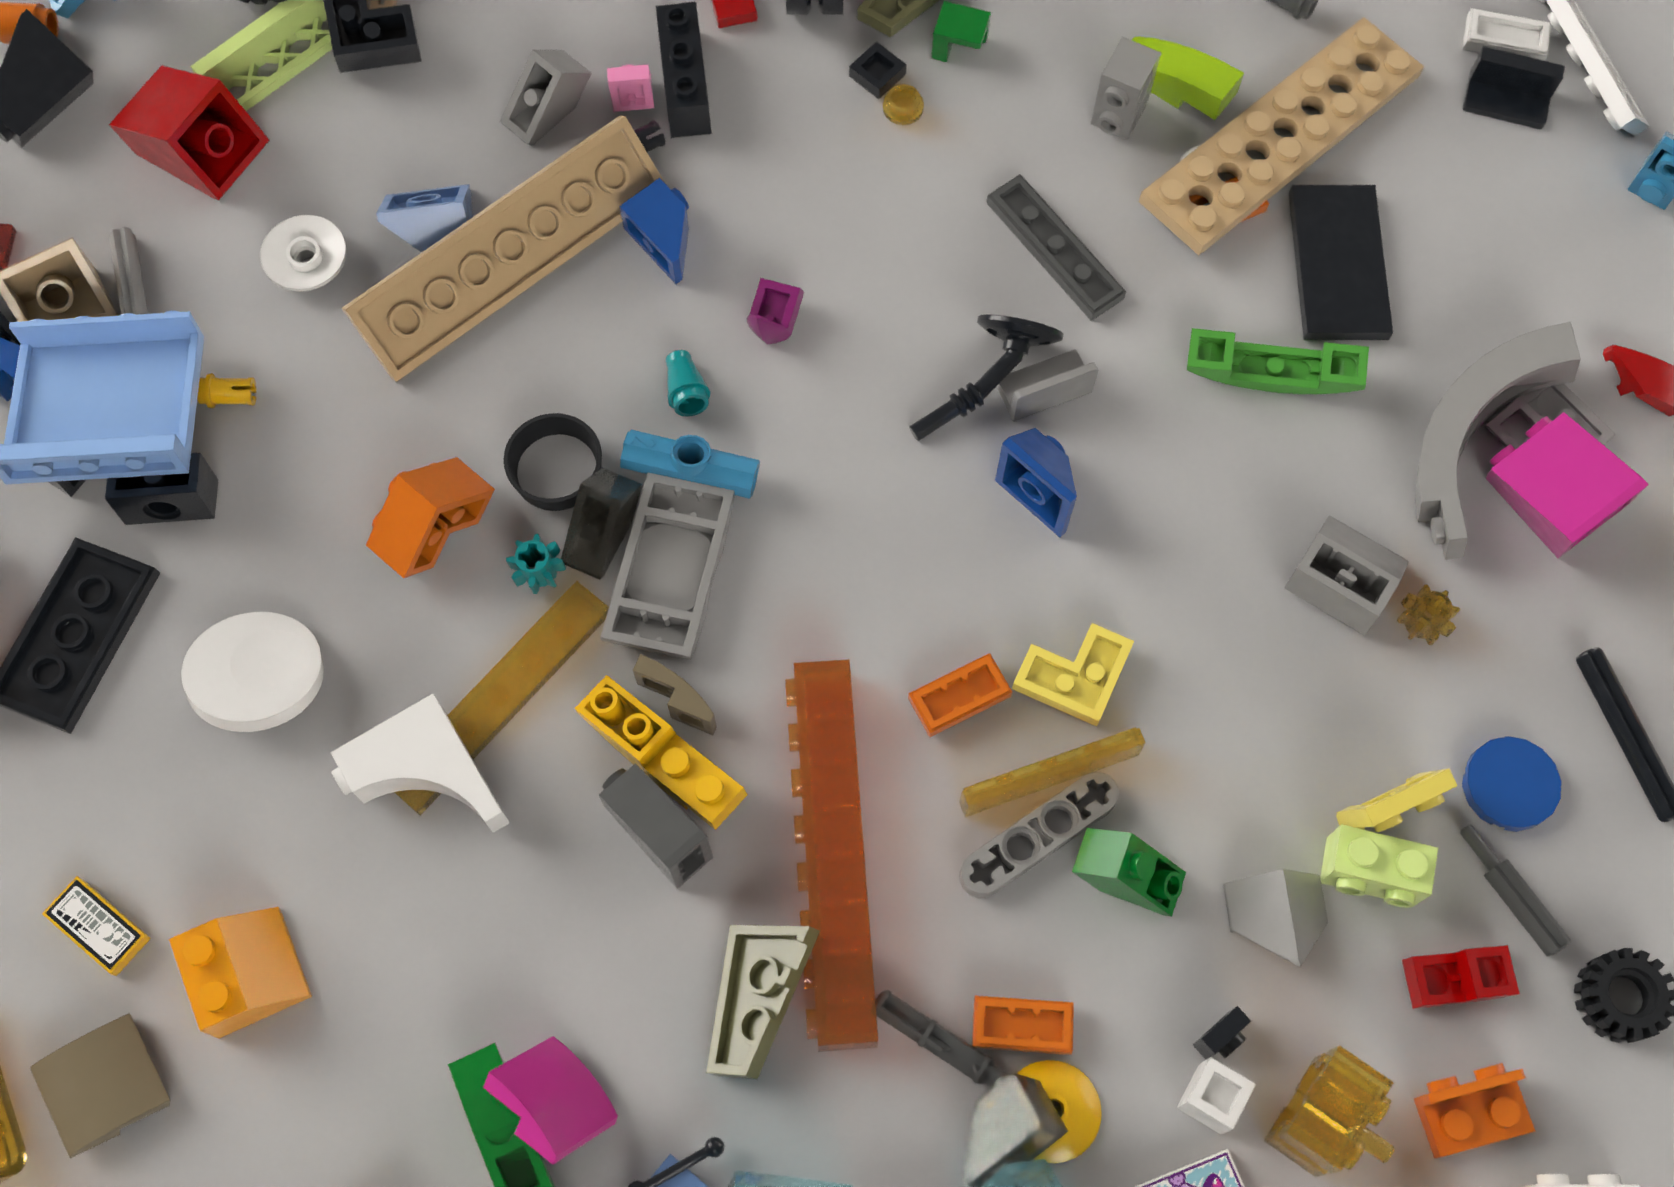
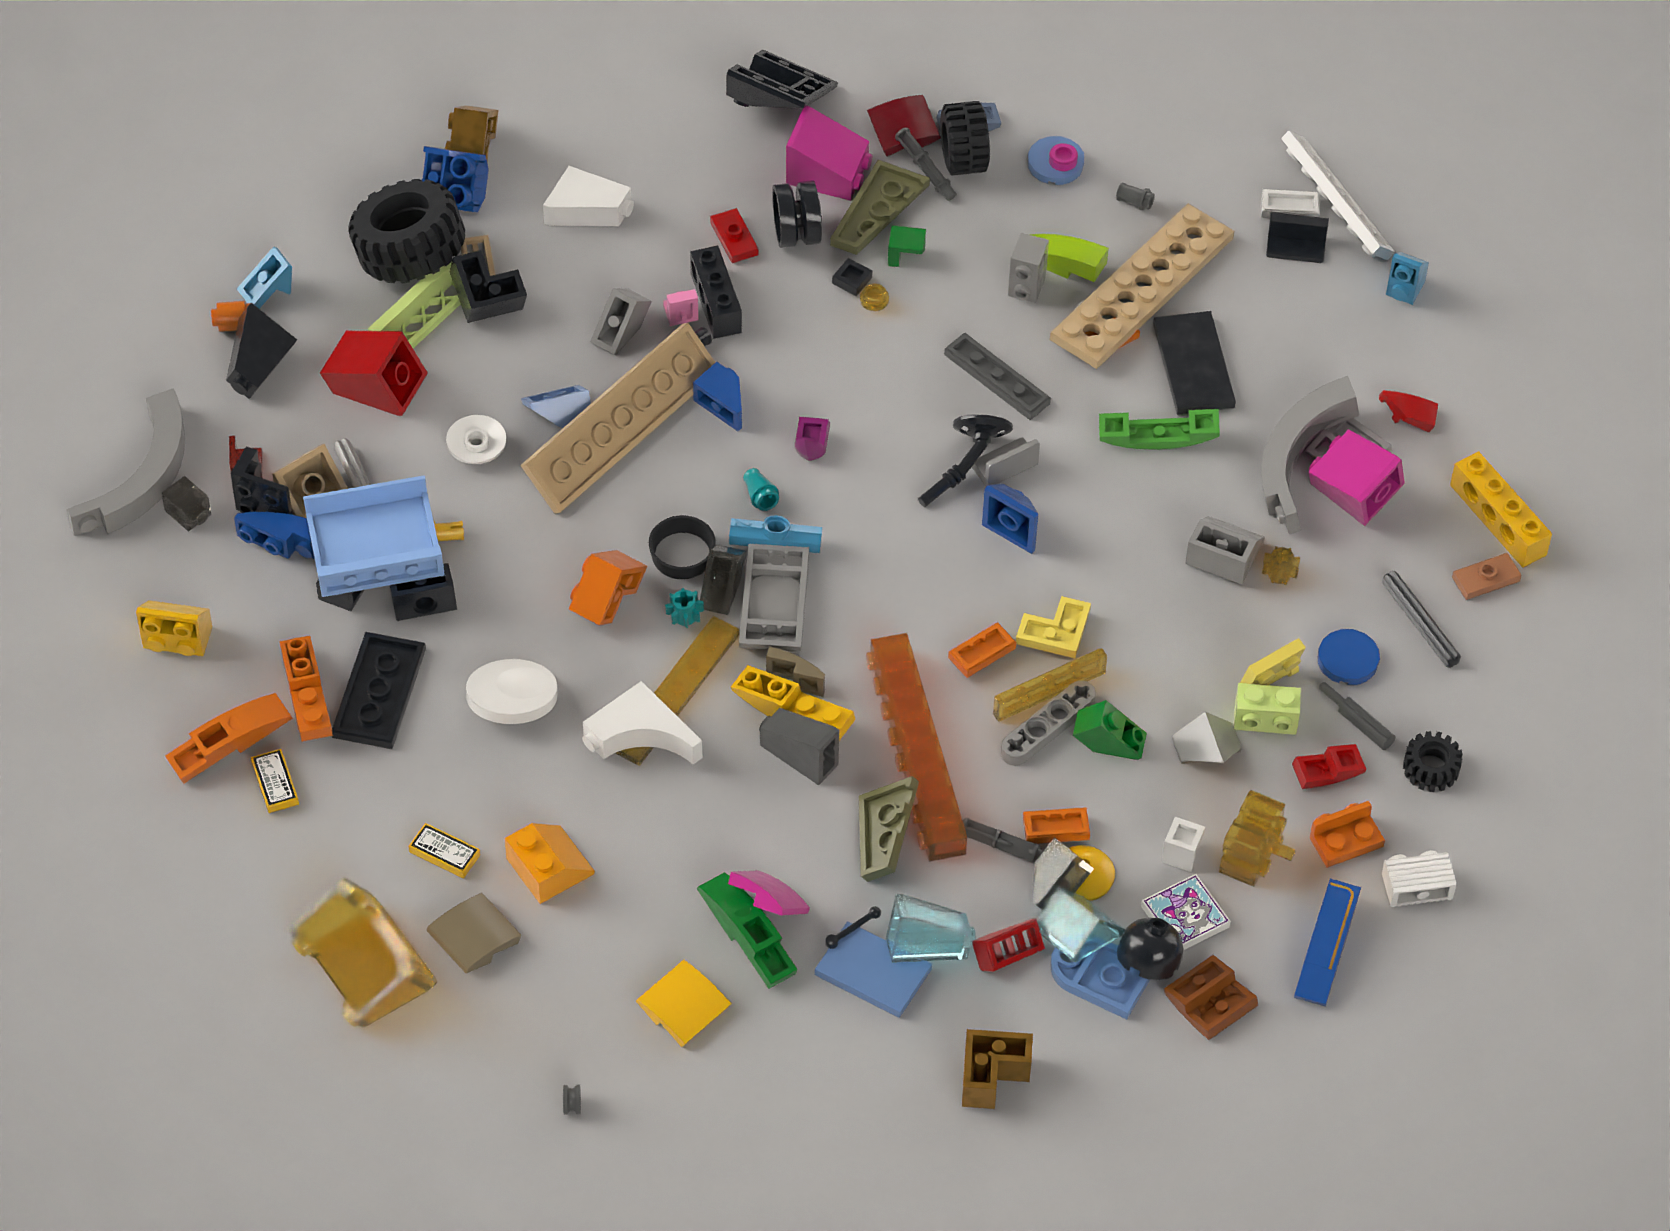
camera: 10 degrees left, 15 degrees down
(1224, 1035) = (1184, 808): black plate -> none

